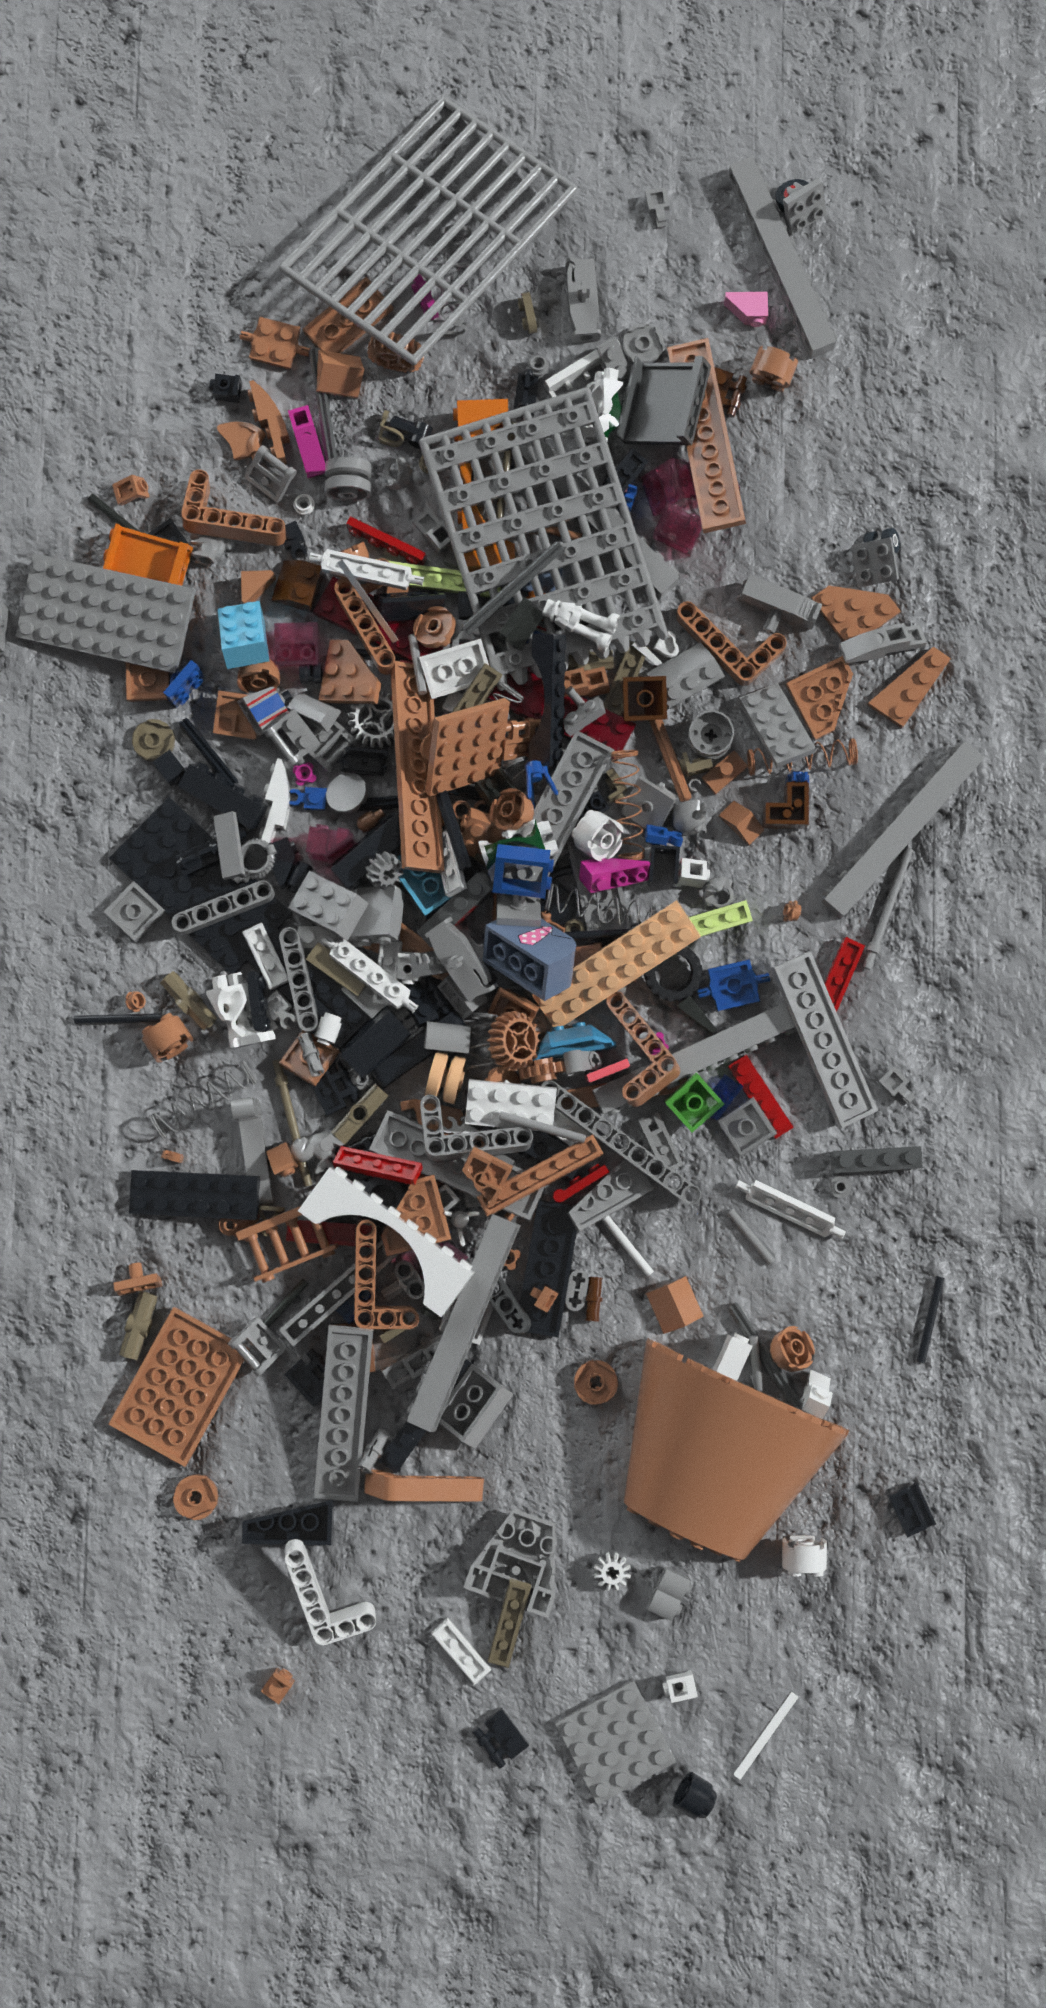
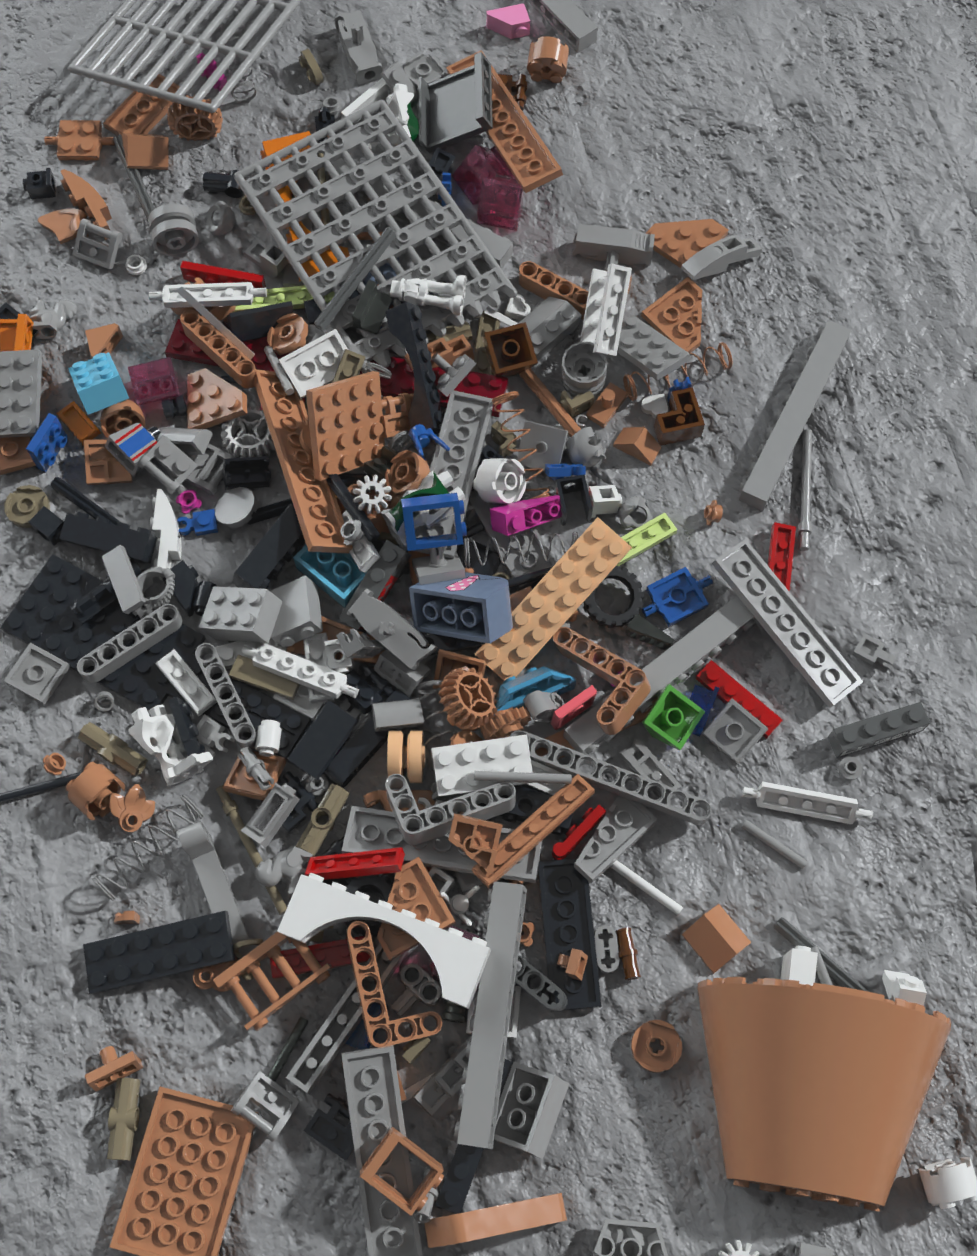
camera: 15 degrees left, 15 degrees down
(189, 953) = (104, 704): none -> light grey hinge
(195, 1058) = (133, 805): none -> nougat plate
(198, 517) = (62, 292): nougat beam -> none
(215, 664) = (78, 422): none -> orange tile
(282, 1160) = (249, 890): nougat slope -> none
(294, 539) = (131, 296): black plate -> none
(298, 584) = (146, 333): reddish brown slope -> none
(307, 441) = (127, 208): dark pink slope -> none
(315, 1100) = (271, 814): none -> light grey window
(328, 844) = (225, 554): clear pink slope -> none
(340, 1415) = (378, 1157): none -> nougat window
(369, 820) = (263, 527): nougat cylinder -> none
(384, 440) = (198, 181): dark tan piece -> none
(384, 870) = (282, 561): light grey gear -> none
(441, 857) = (351, 532): none -> light grey plate
(466, 829) = (379, 490): none -> white gear
(745, 684) = (606, 308): none -> white fence
(771, 786) = (654, 405): none -> white tile
(792, 1349) = (858, 950): nougat cylinder -> none
(876, 558) = (691, 191): light grey plate -> none
(906, 692) = (758, 294): nougat wing -> none

